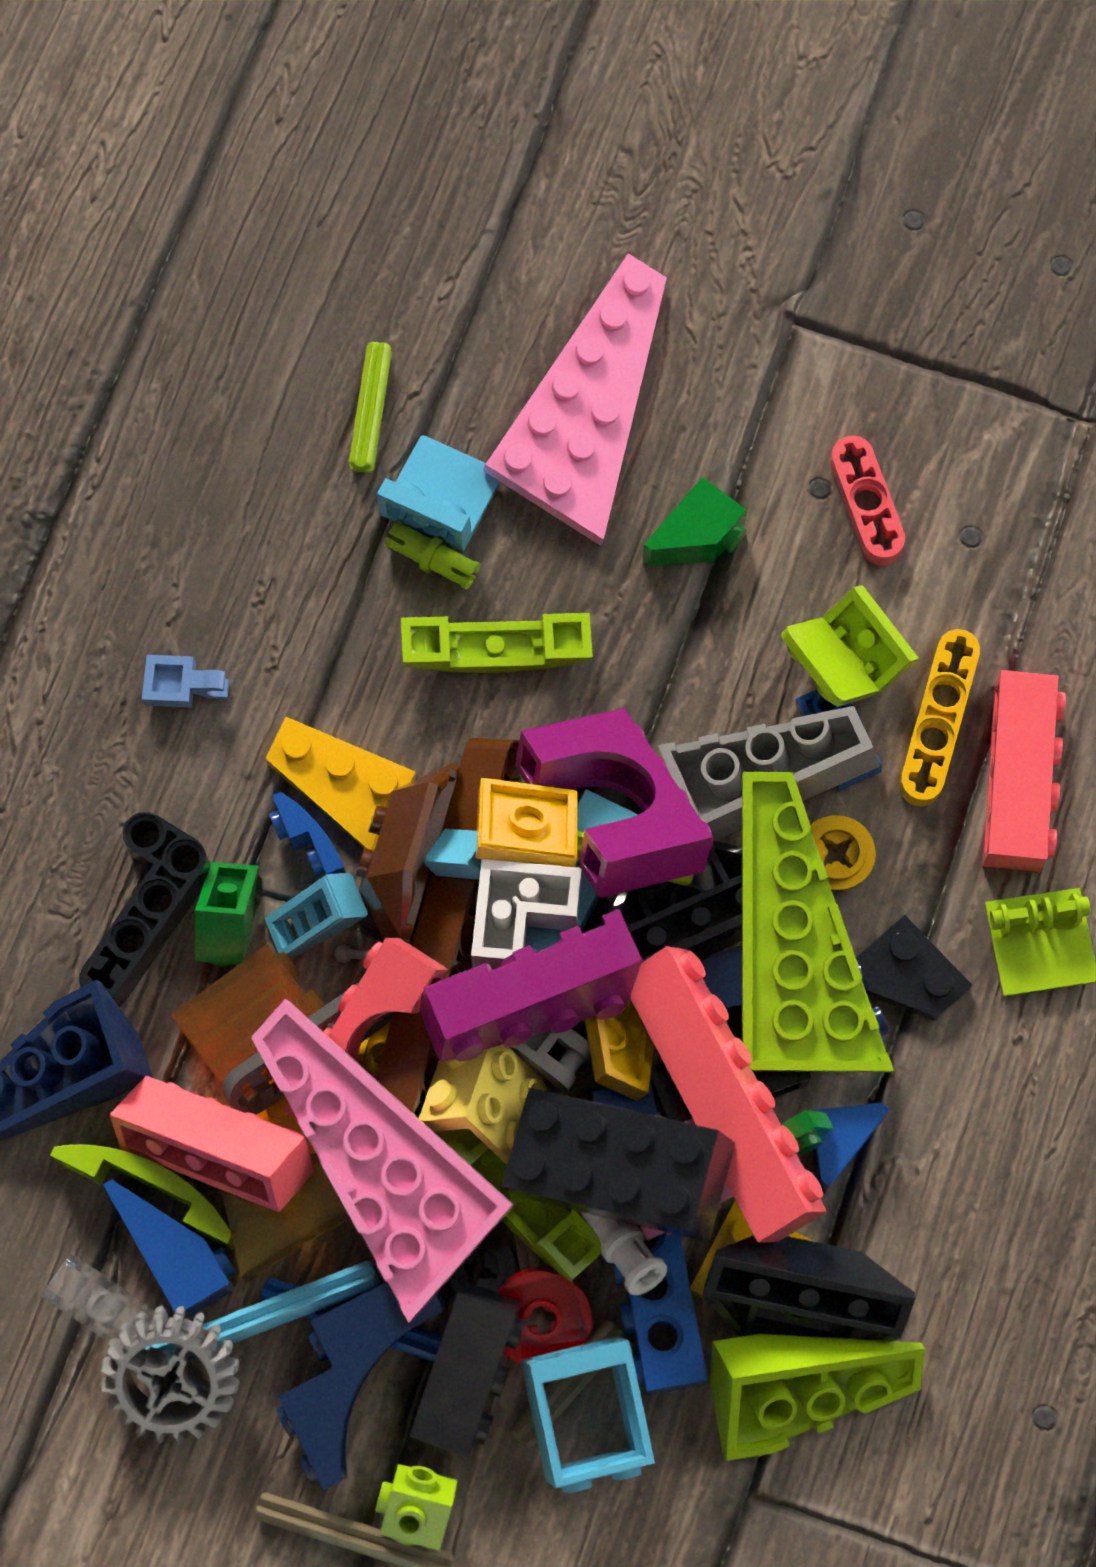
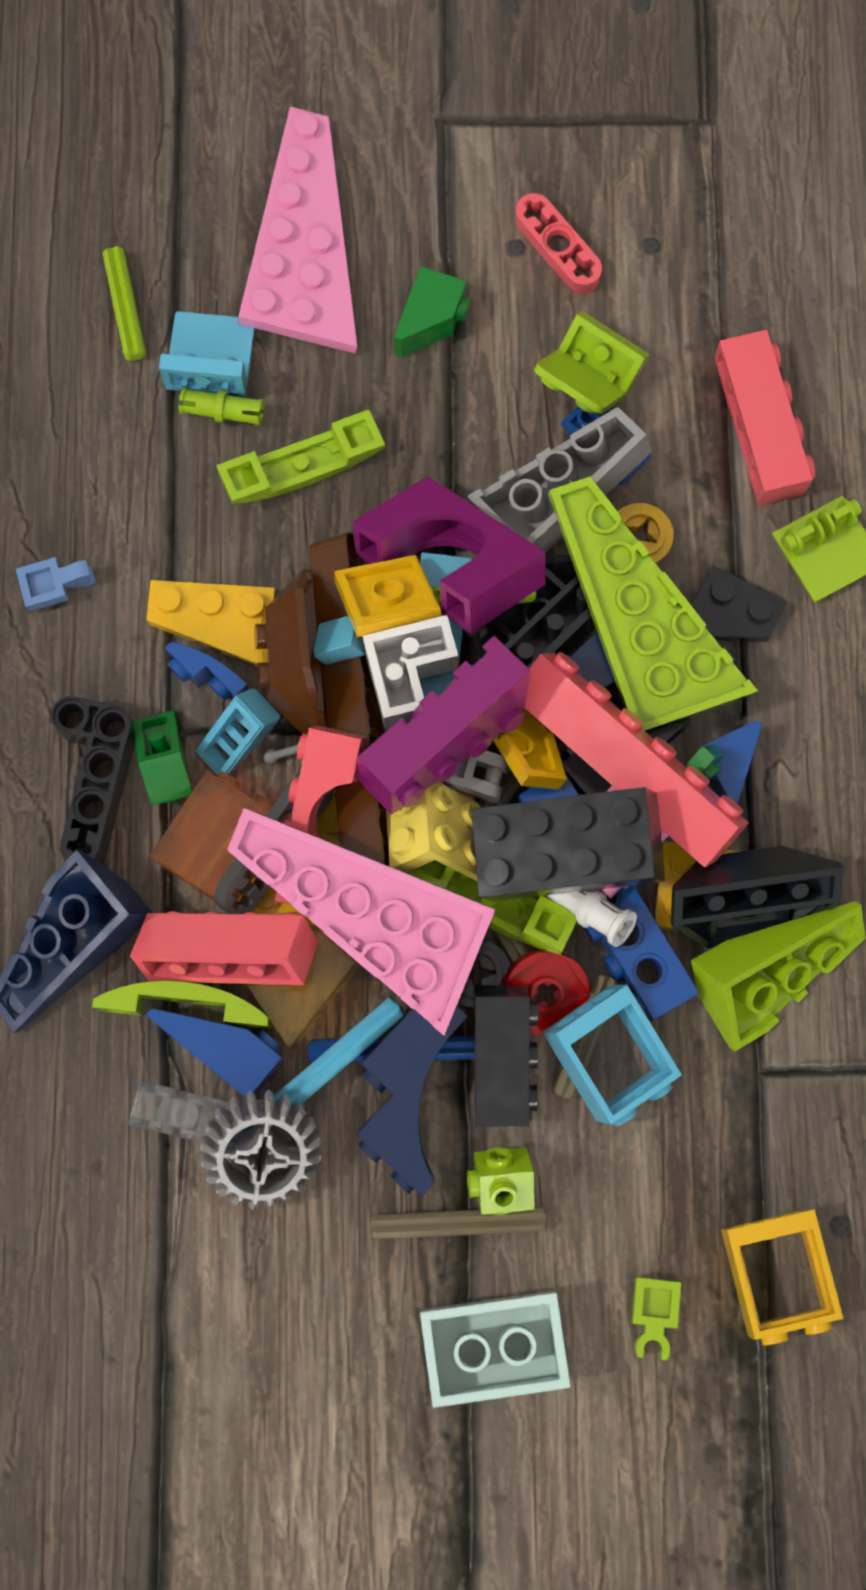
camera: 20 degrees left, 5 degrees up
(936, 716) = (676, 398): yellow beam -> none

